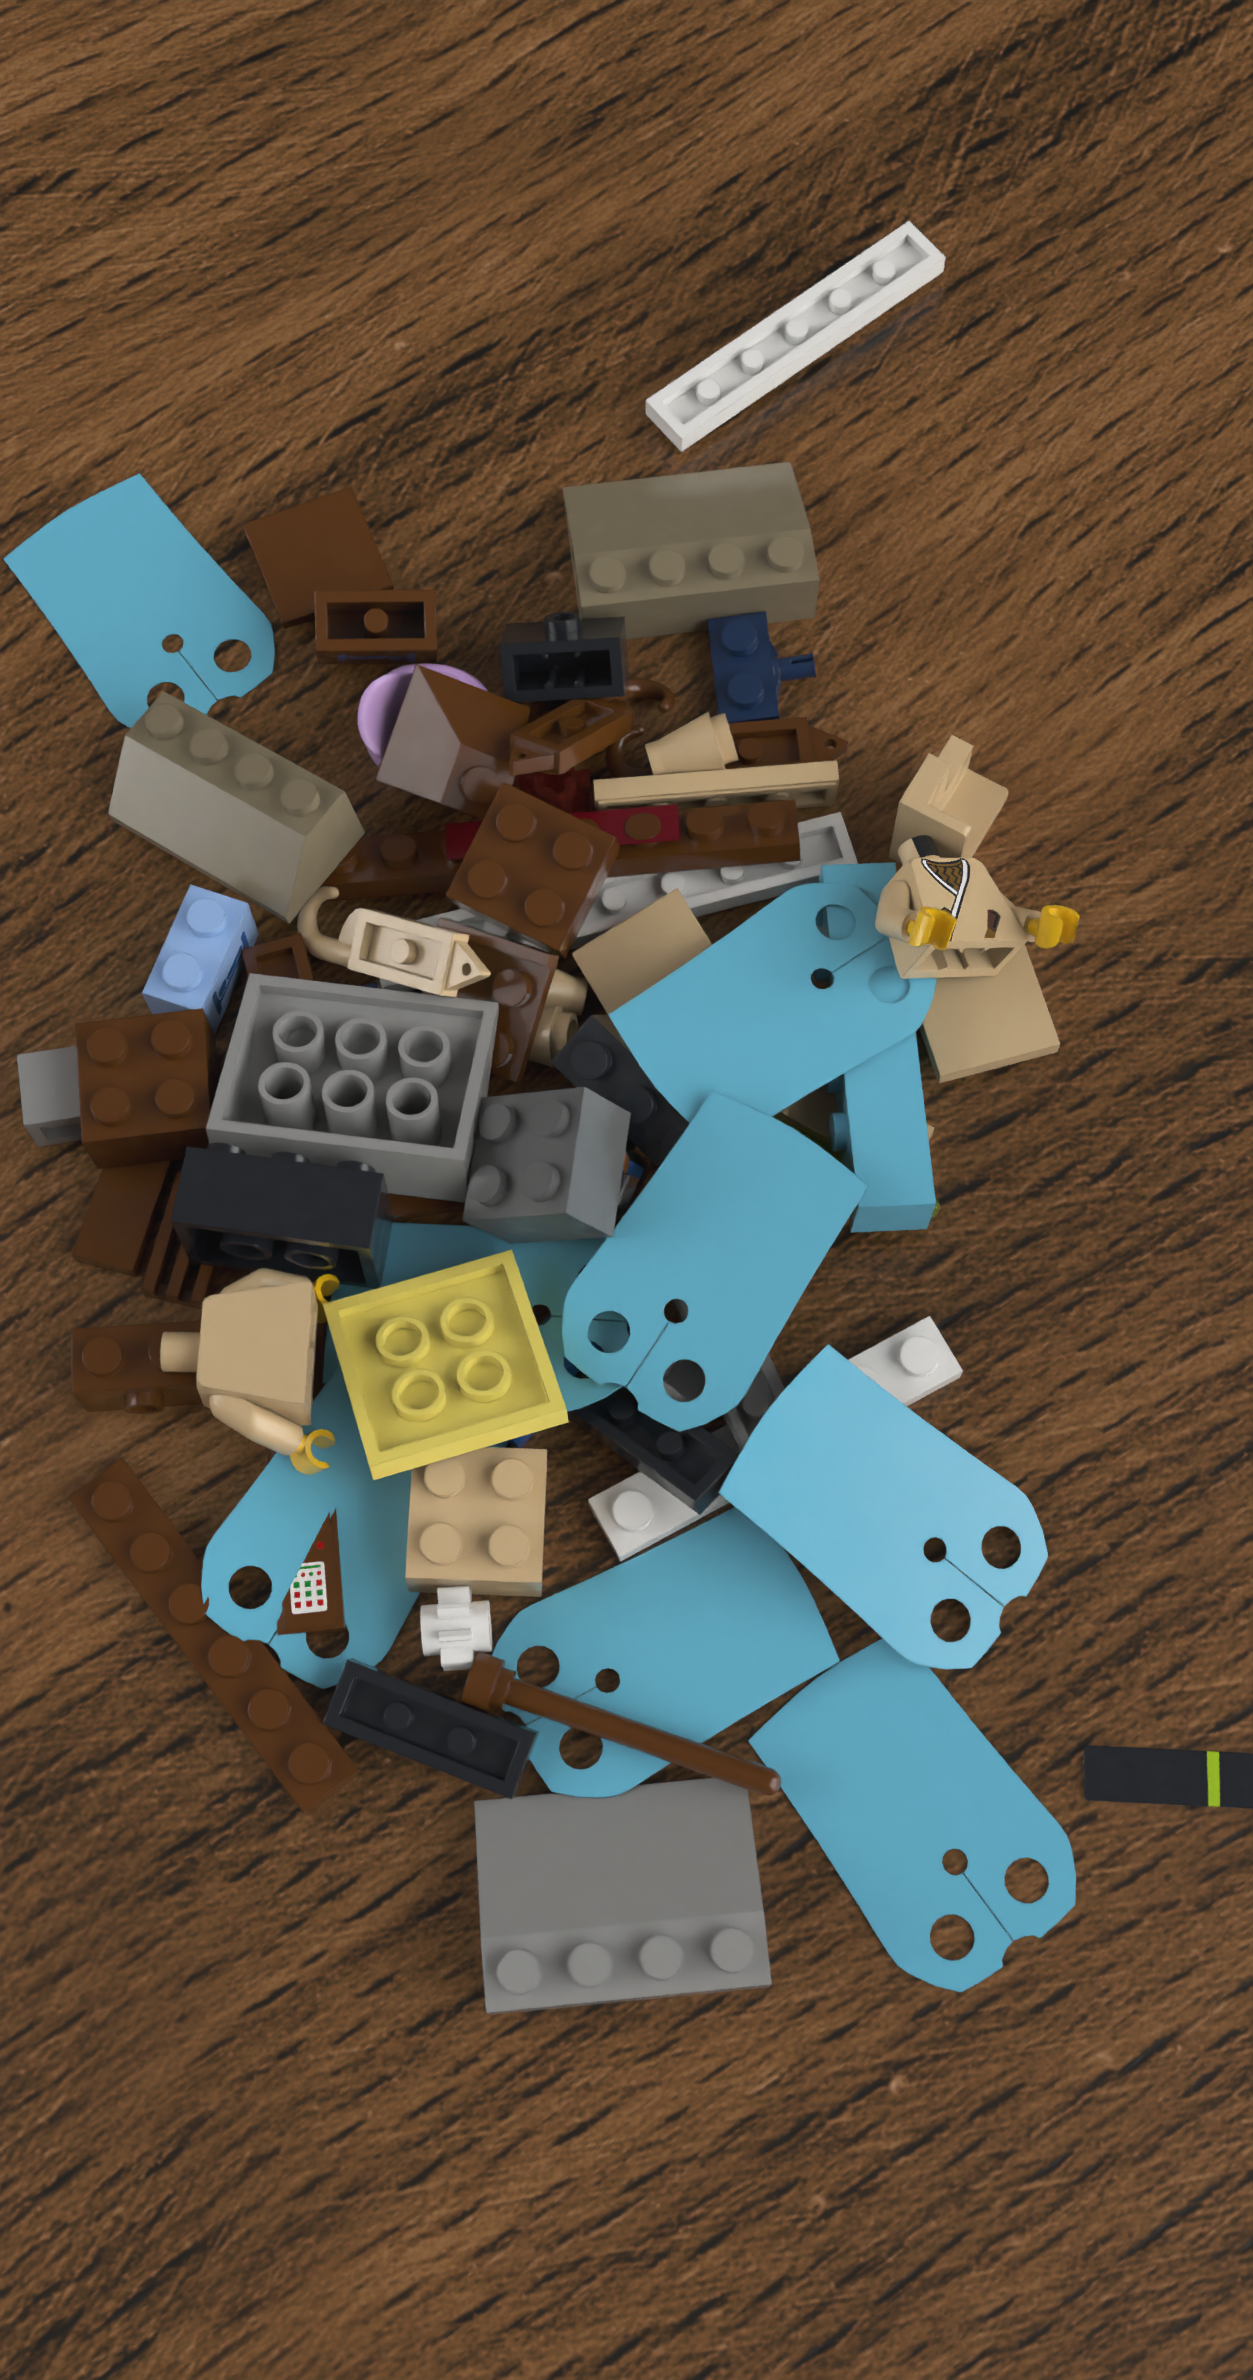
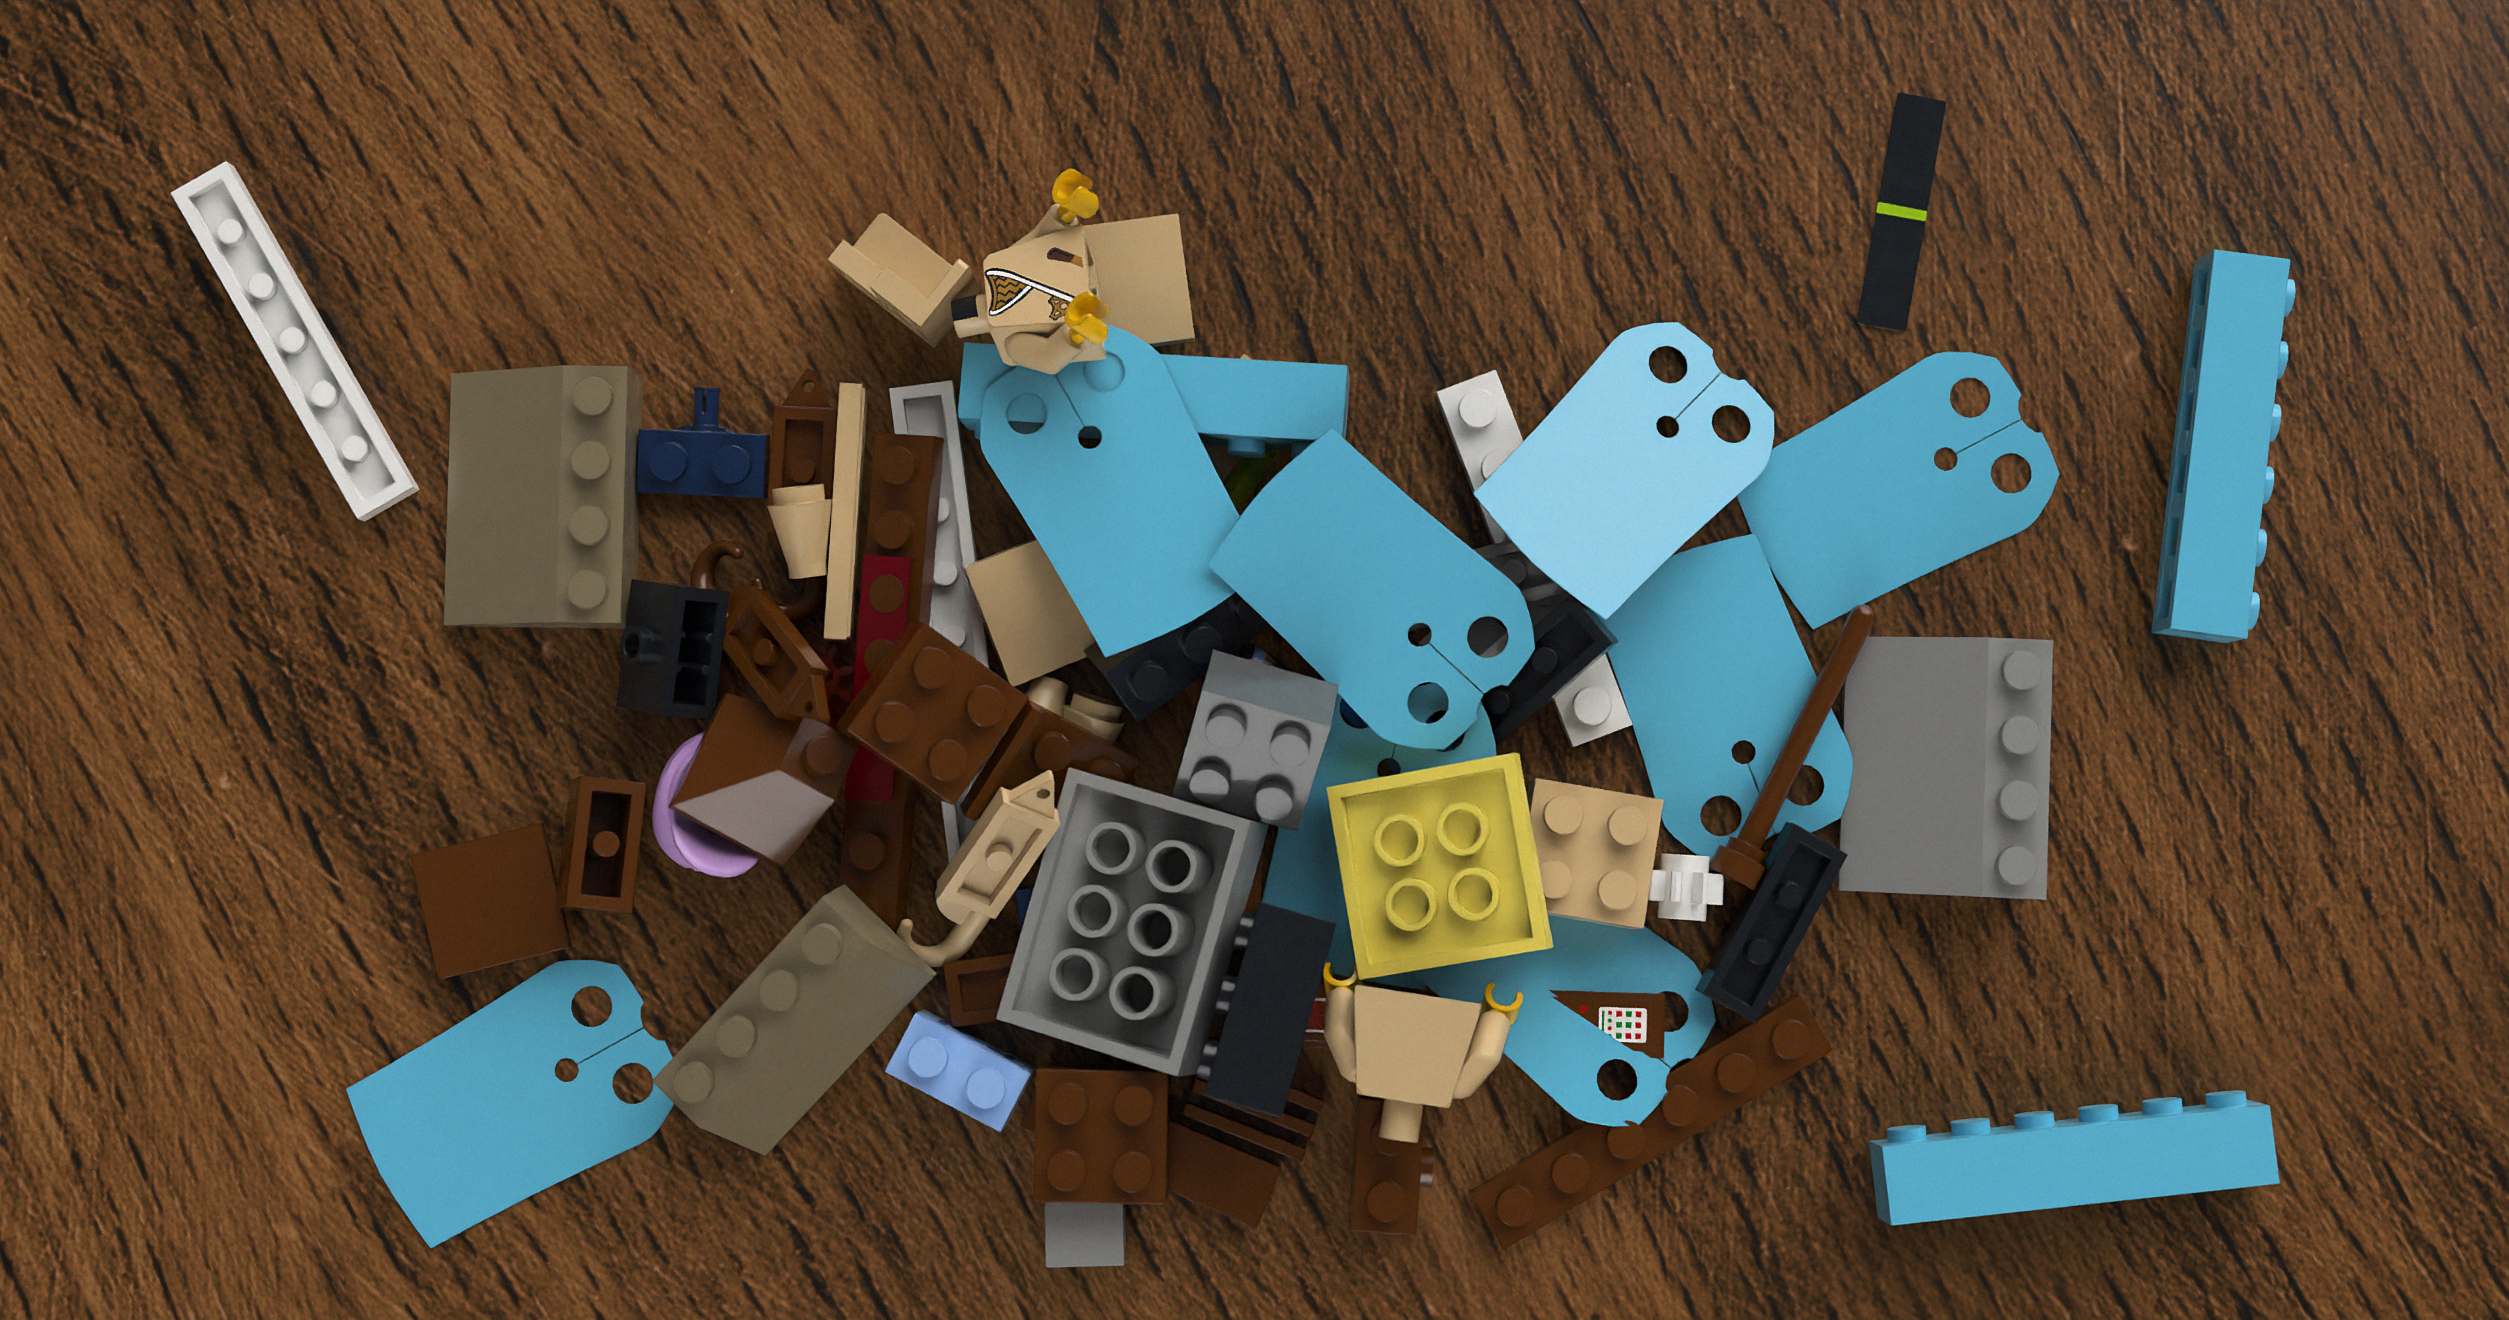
camera: 85 degrees left, 15 degrees up
(209, 2099) = (2073, 1160): none -> medium azure brick
(1024, 2171) = (2223, 447): none -> medium azure brick

